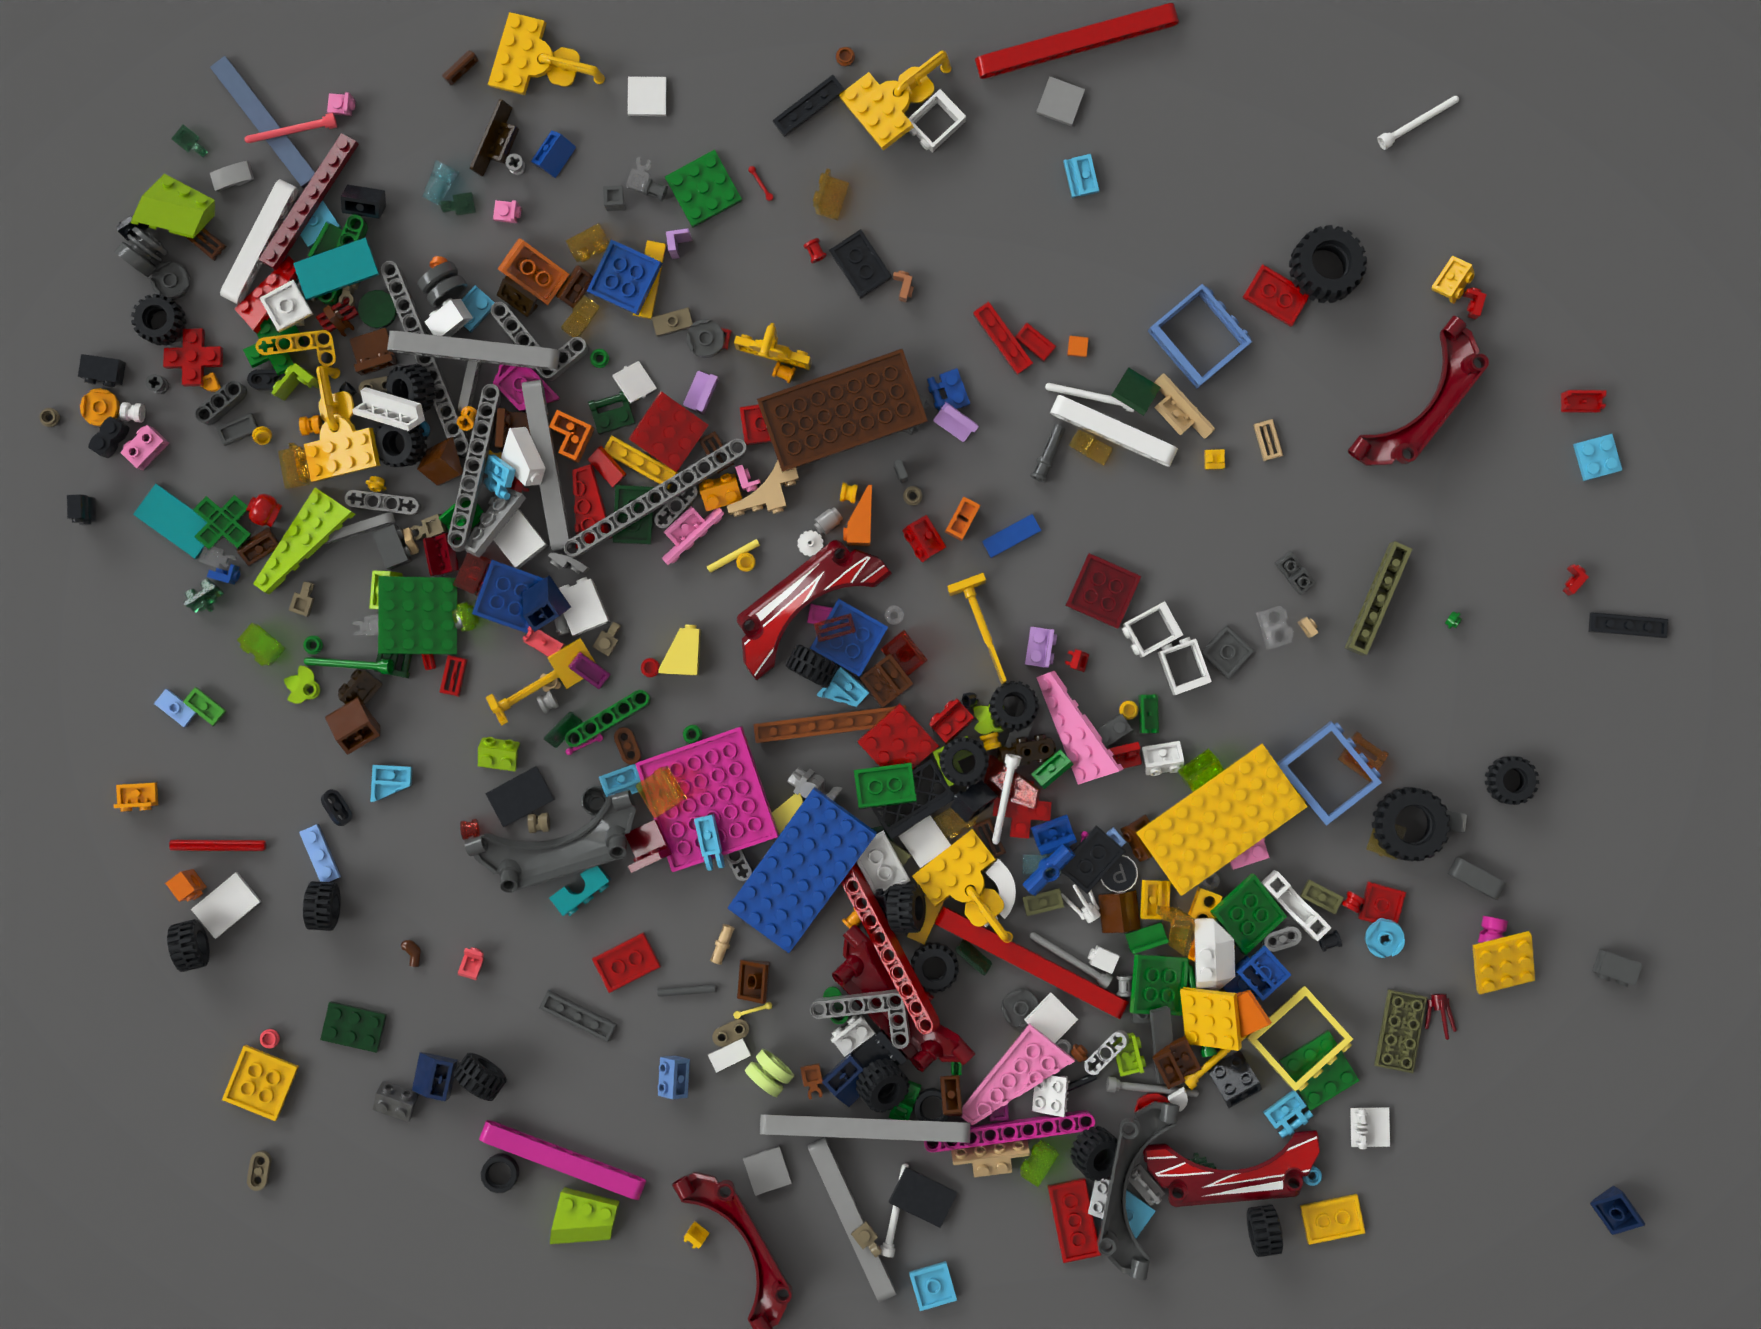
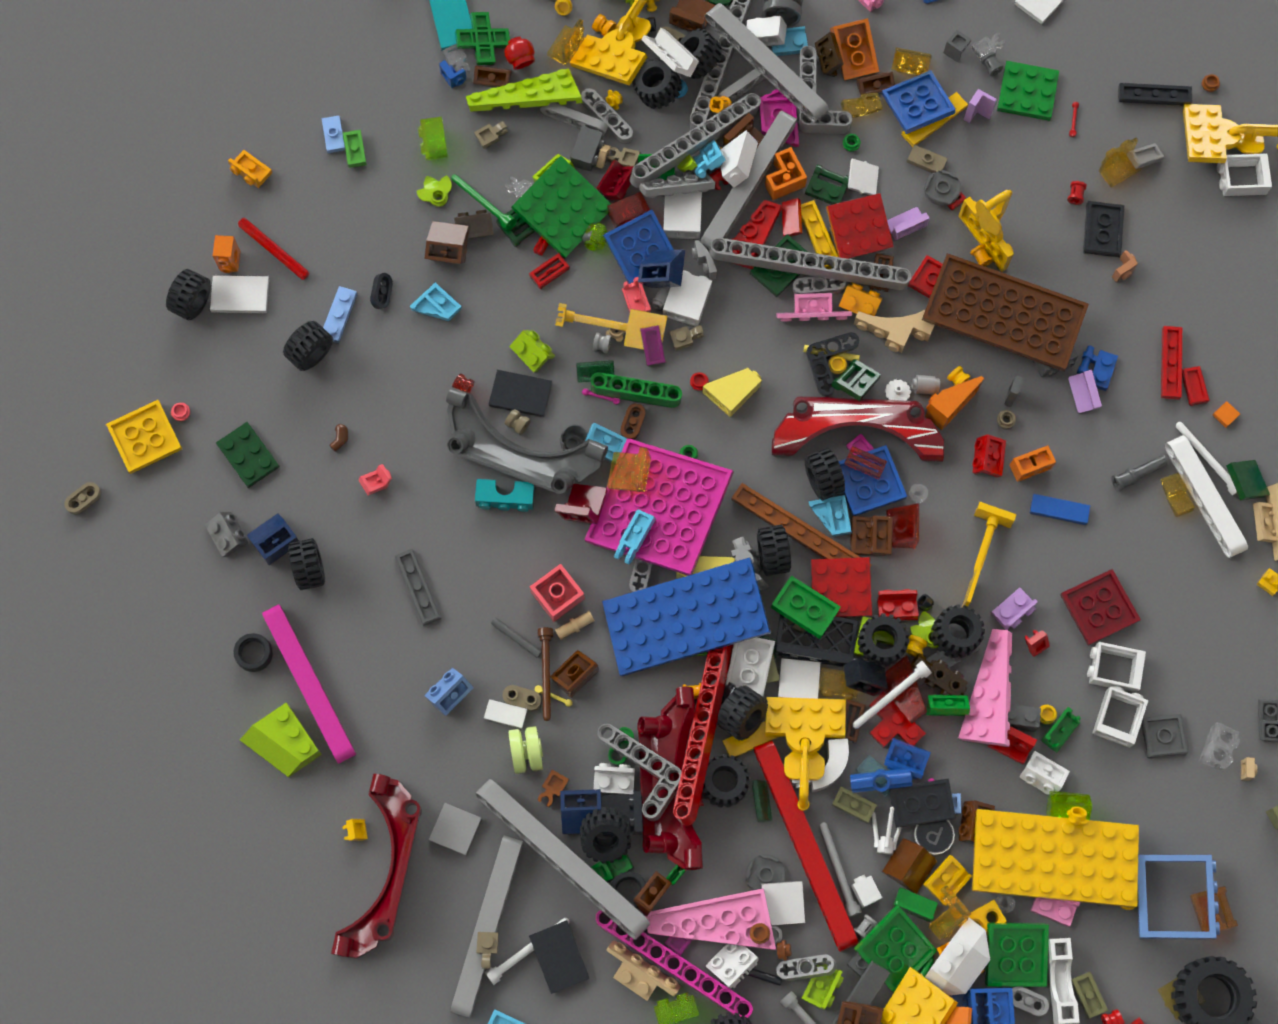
camera: 40 degrees right, 15 degrees down
(204, 598) = (423, 77): clear green hips -> none
(307, 645) = (469, 165): green plate -> none
(441, 462) = (673, 120): reddish brown slope -> none
(486, 493) = (688, 163): none -> lime tile
(626, 962) = (489, 578): red tile -> none
(688, 933) = (557, 592): none -> coral brick
(708, 972) = (545, 635): none -> reddish brown piece
(730, 569) = (821, 358): none -> black beam
(744, 476) = (888, 305): bright pink bracket -> none
(778, 563) = (860, 384): none -> plate
(823, 760) = (774, 550): none -> black tyre
(844, 170) = (1145, 156): none -> light grey tile
(1054, 1061) = (759, 933): none -> dark orange plate
(1210, 774) = (1077, 816): none -> yellow plate

